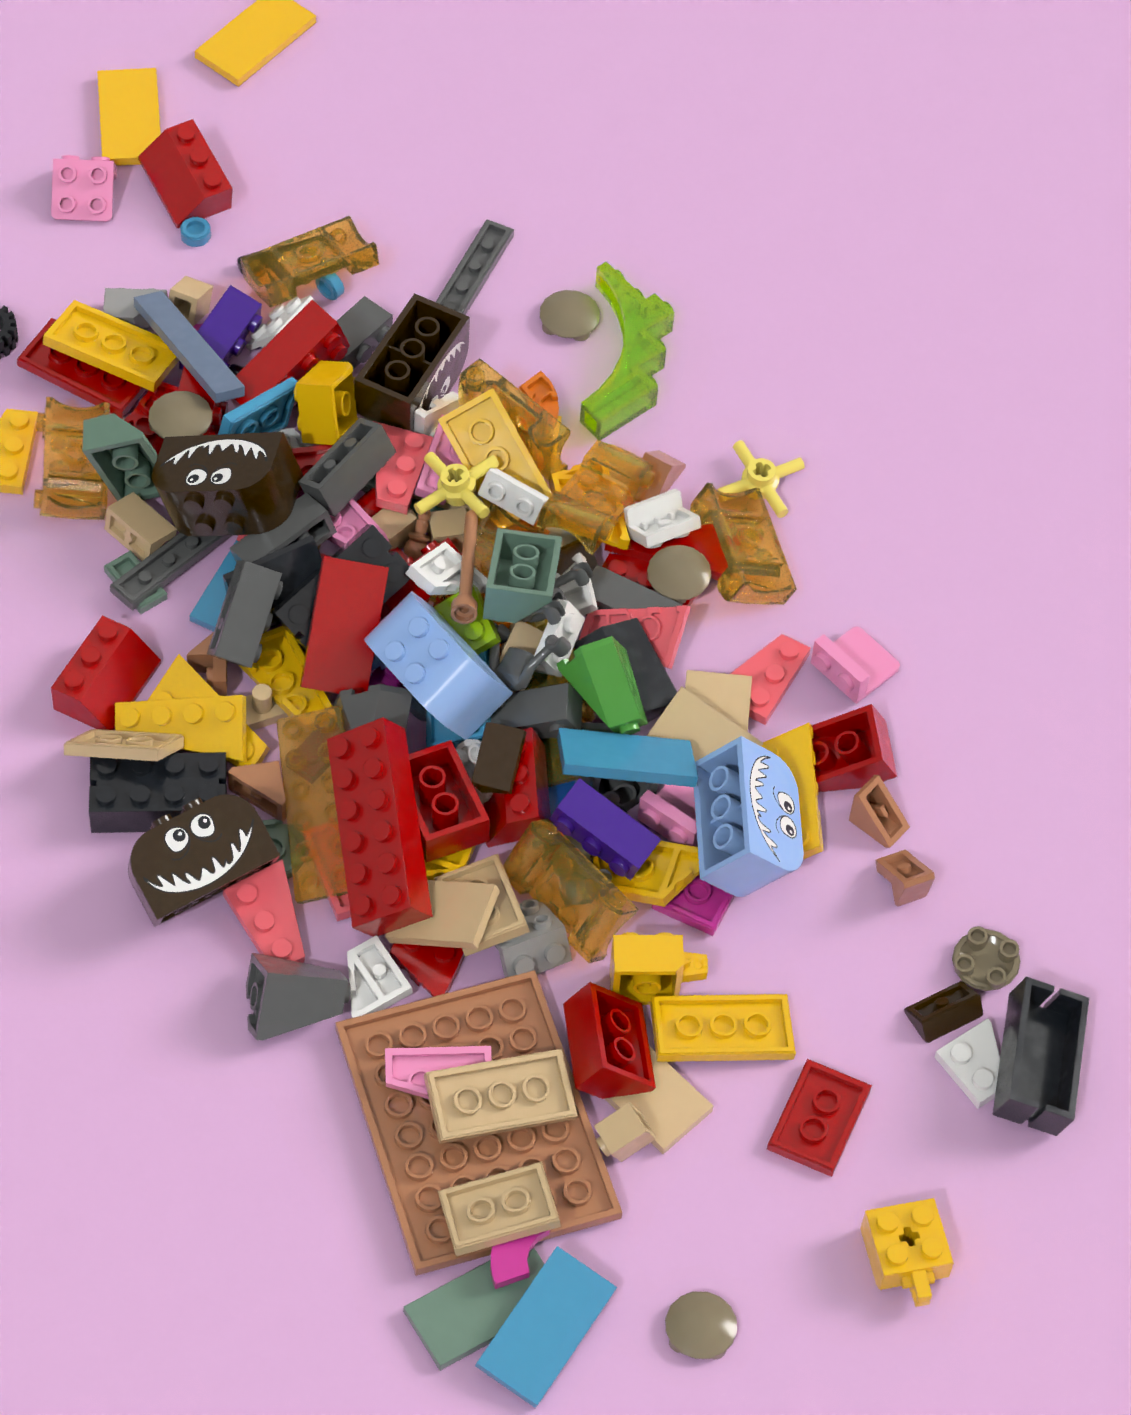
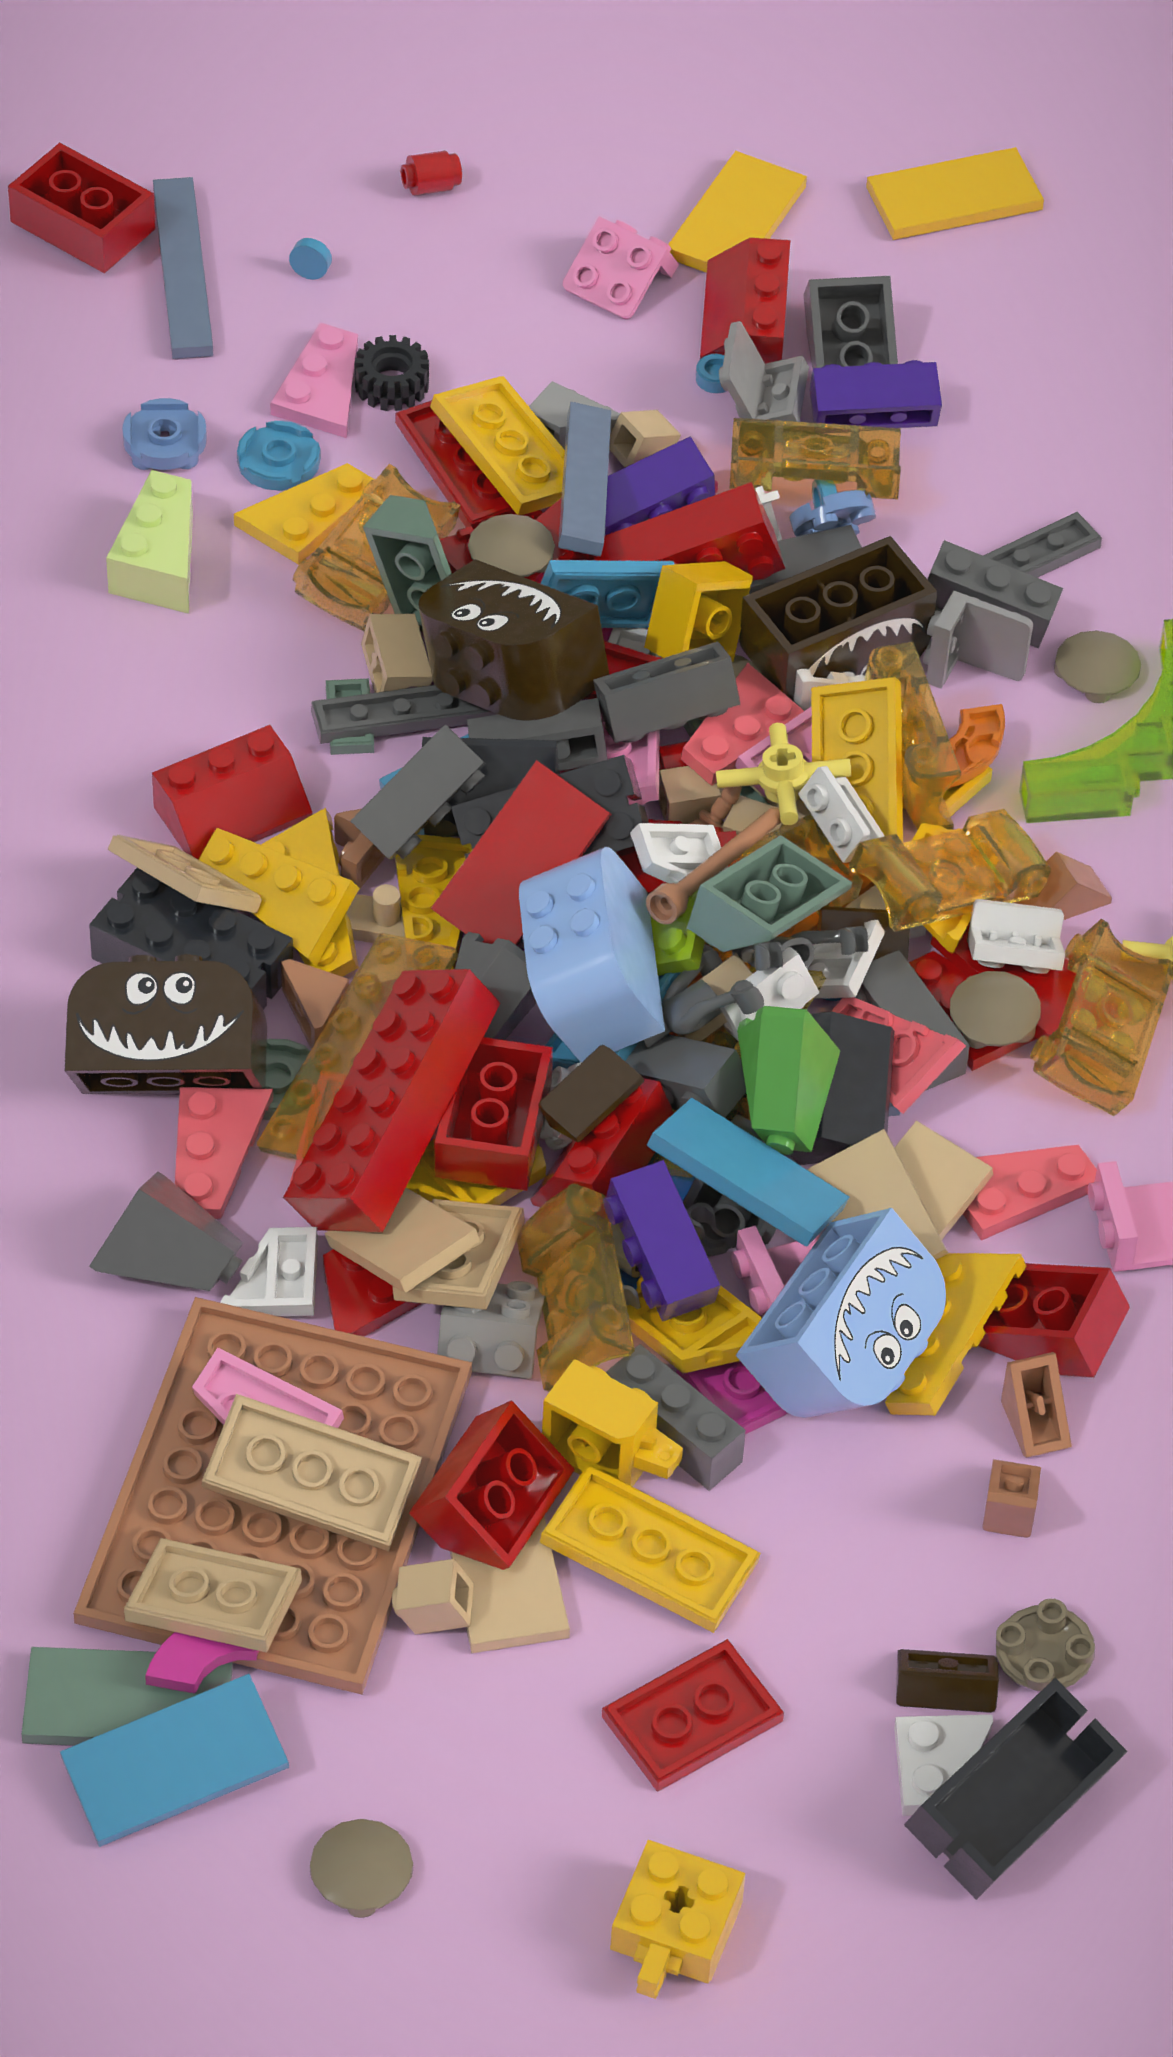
camera: 35 degrees right, 5 degrees down
(239, 226) = (759, 388): none -> light grey bracket
(267, 167) = (850, 321): none -> dark grey slope
(311, 200) = (877, 395): none -> dark purple brick
(350, 294) = (837, 511): none -> medium blue plate
(486, 298) = (994, 583): none -> dark grey brick
(499, 332) = (977, 636): none -> light grey bracket
(699, 933) = (708, 1436): none -> dark grey brick

